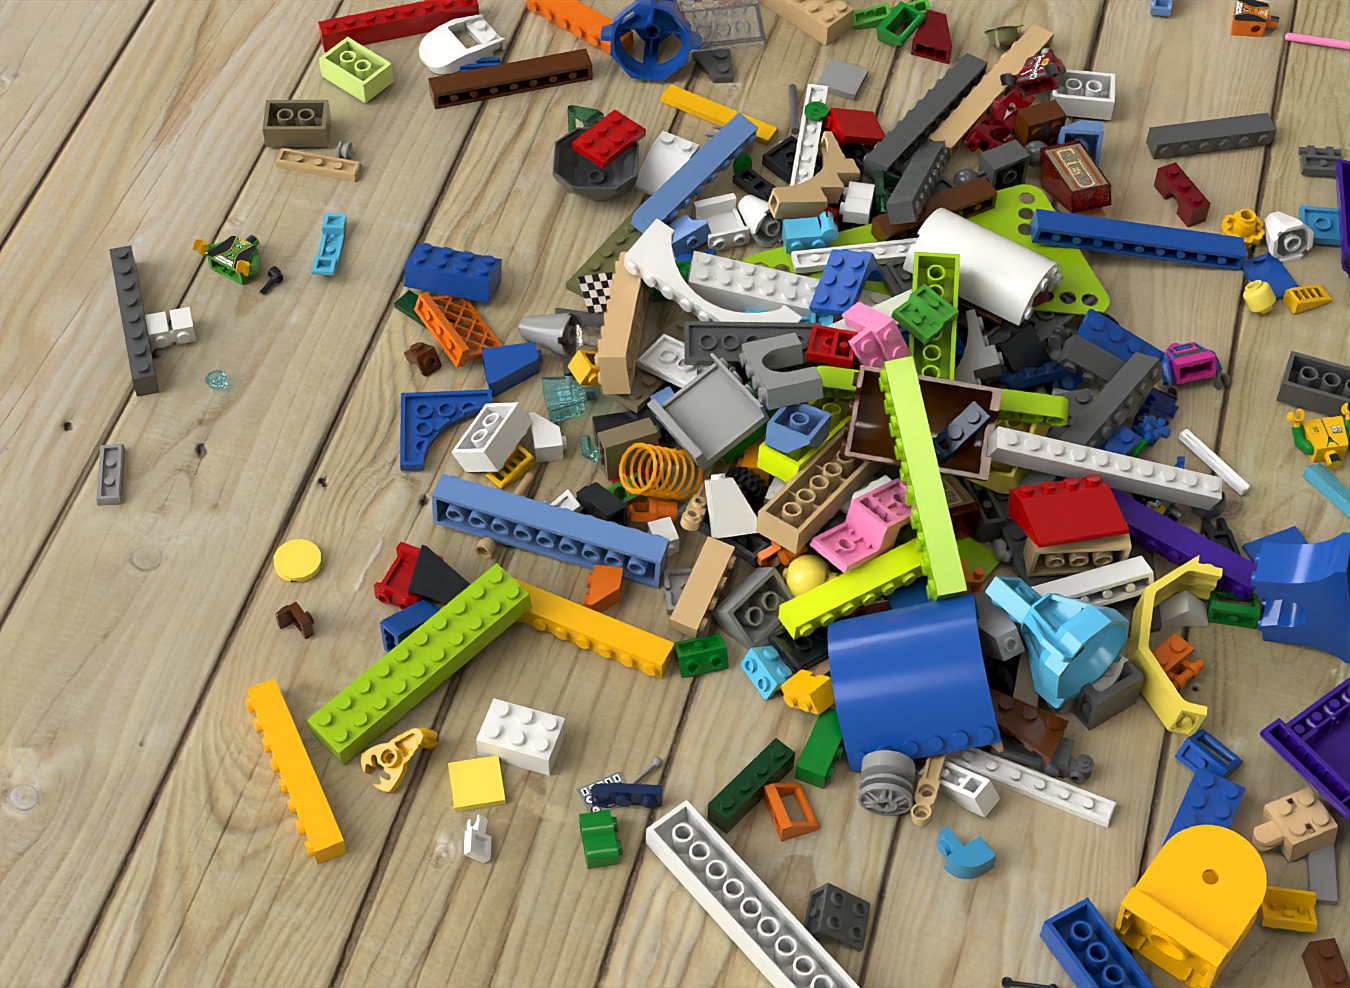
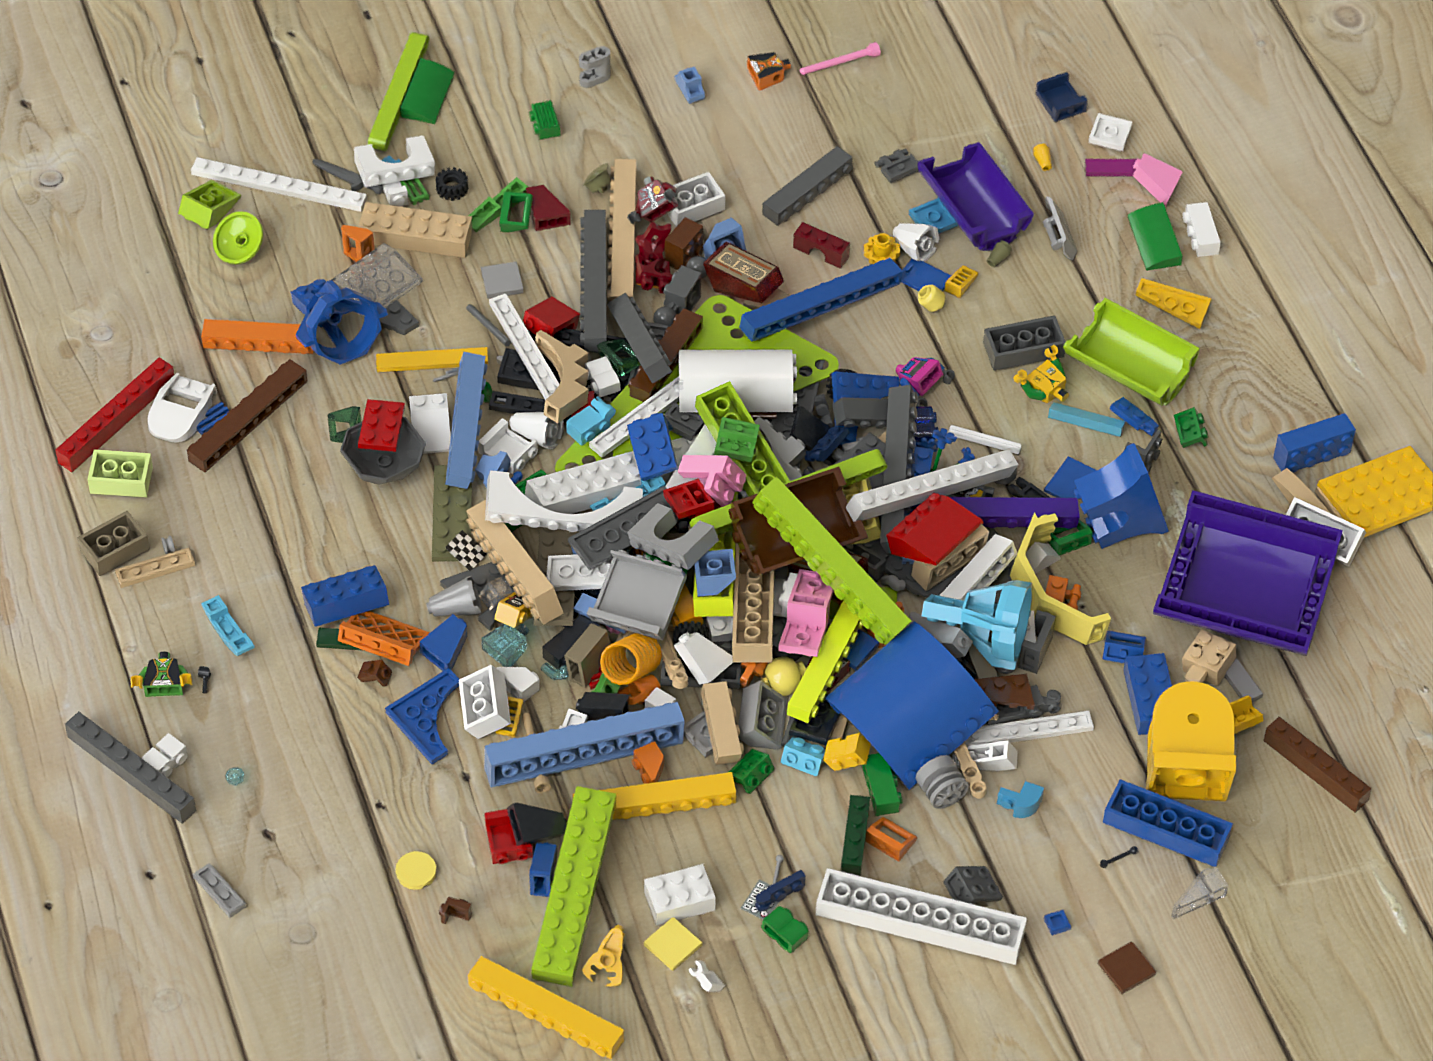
camera: 35 degrees left, 0 degrees up
(816, 111) = (515, 319): green piece -> none
(960, 431) = (826, 506): plate -> none

